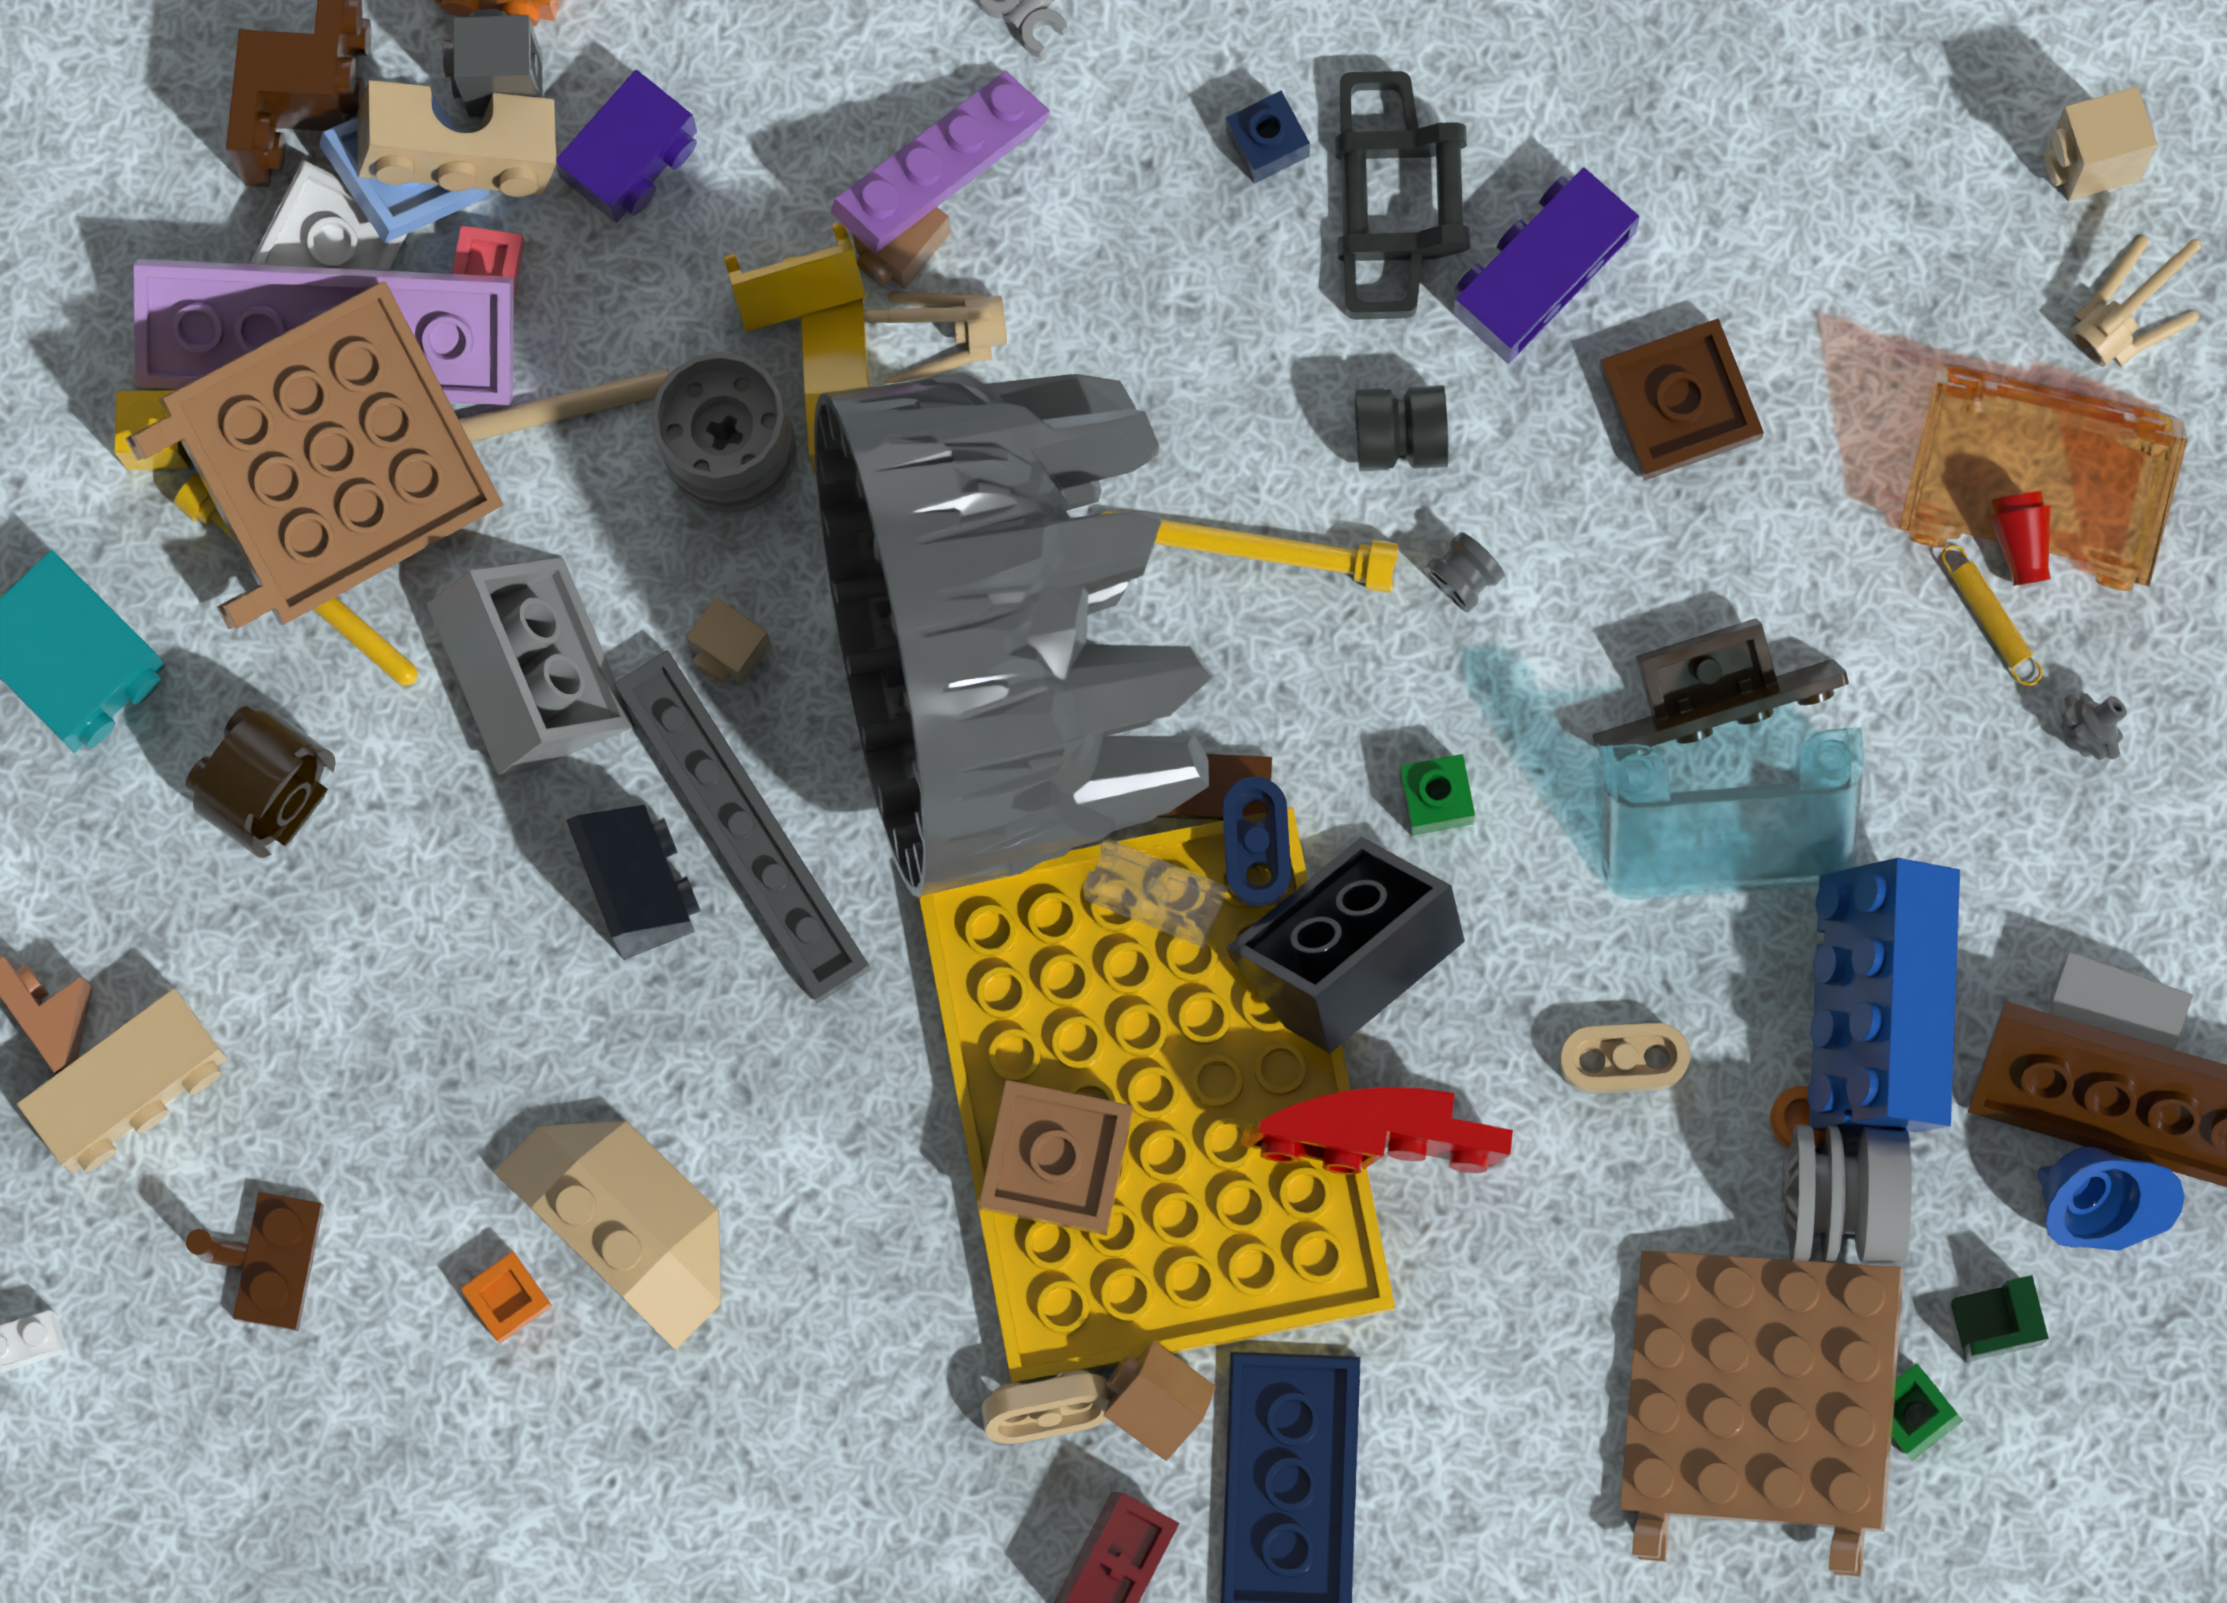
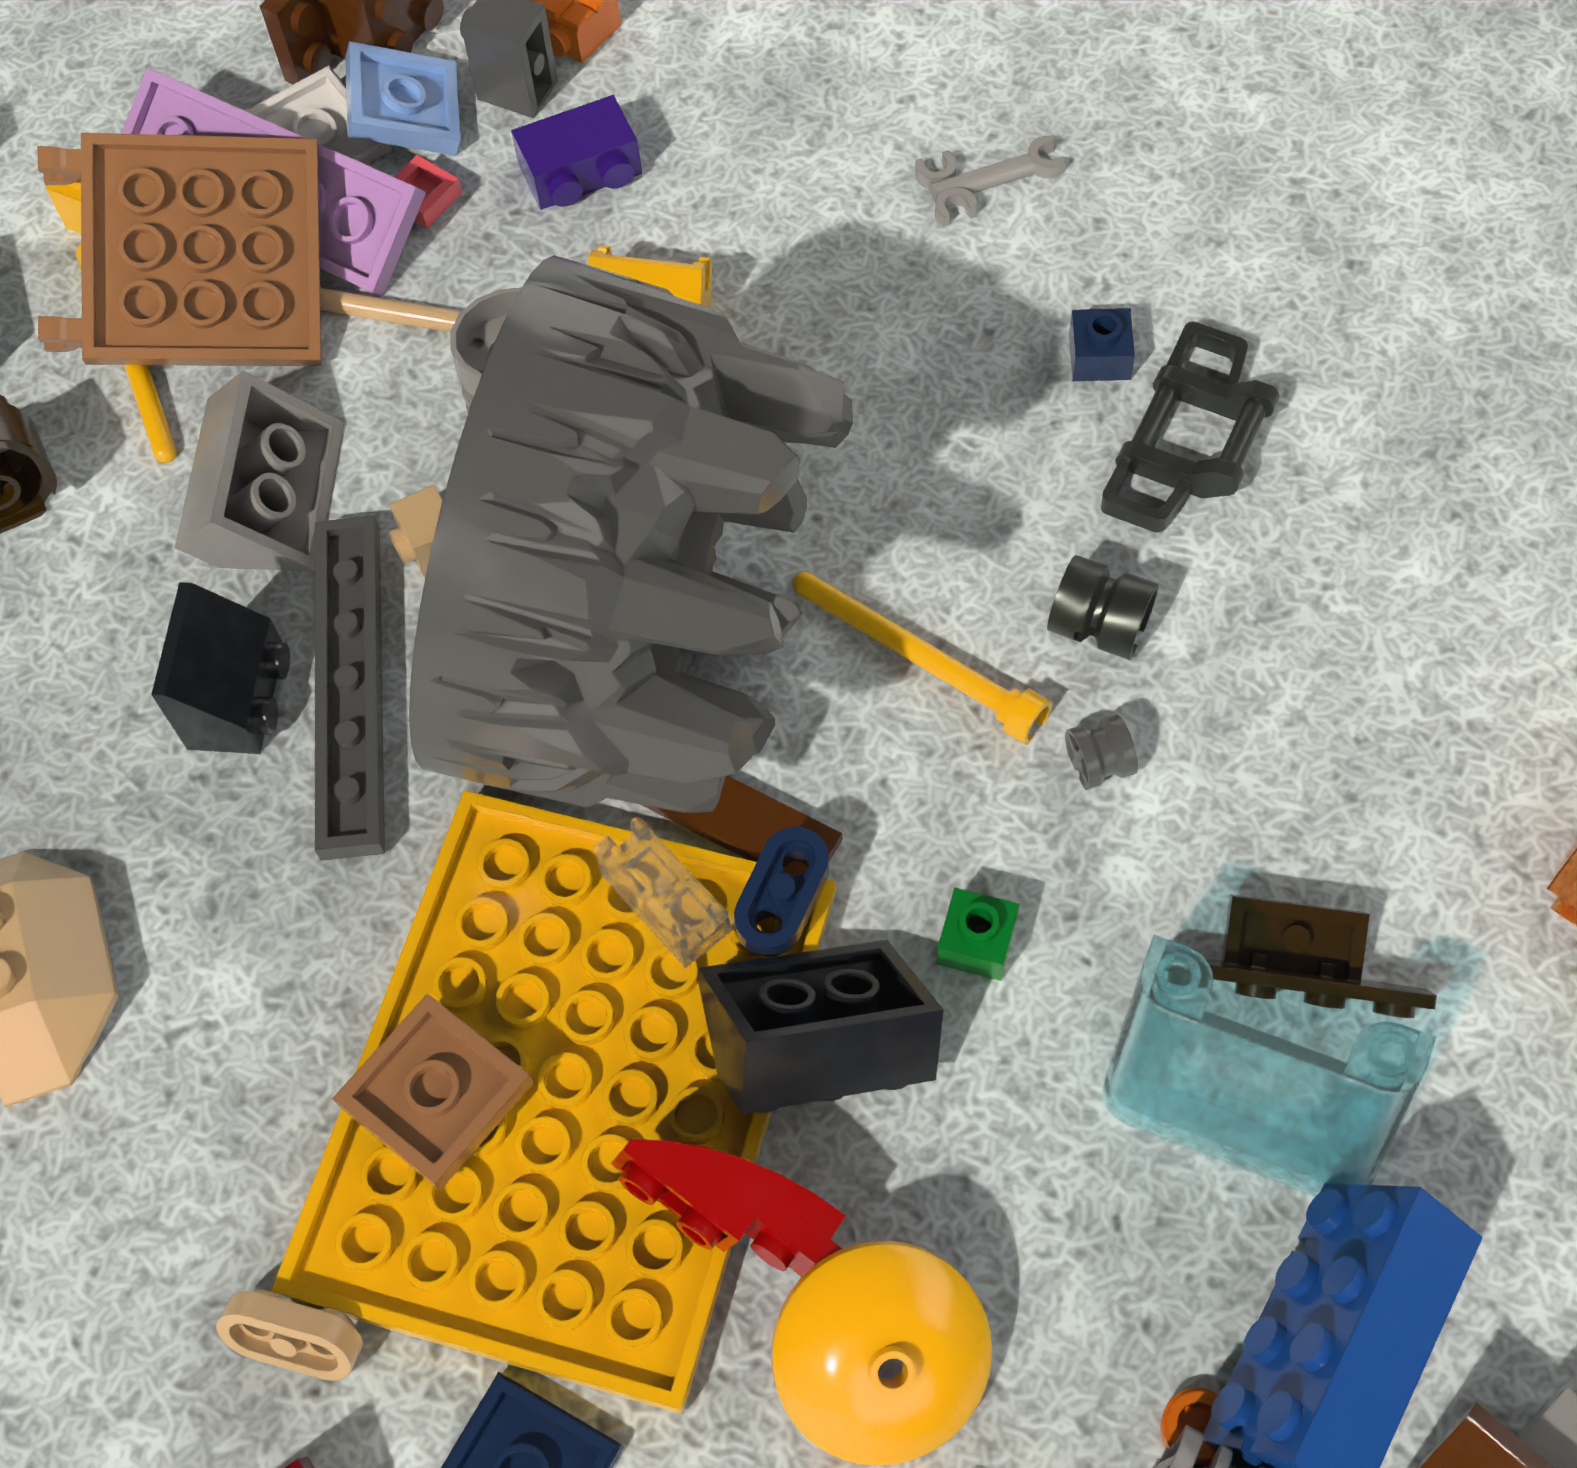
camera: 25 degrees right, 15 degrees down
(407, 143) = (474, 112): tan arch -> none
(907, 253) = (755, 293): medium nougat brick -> none
(939, 162) = (812, 246): medium lavender plate -> none
(1158, 1399) = (392, 1380): medium nougat brick -> none
(1506, 1164) = (855, 1315): none -> yellow dish
(1544, 263) = (1299, 533): dark purple brick -> none
(1623, 1058) = (1042, 1267): tan plate -> none
(1681, 399) = (1377, 695): reddish brown plate -> none

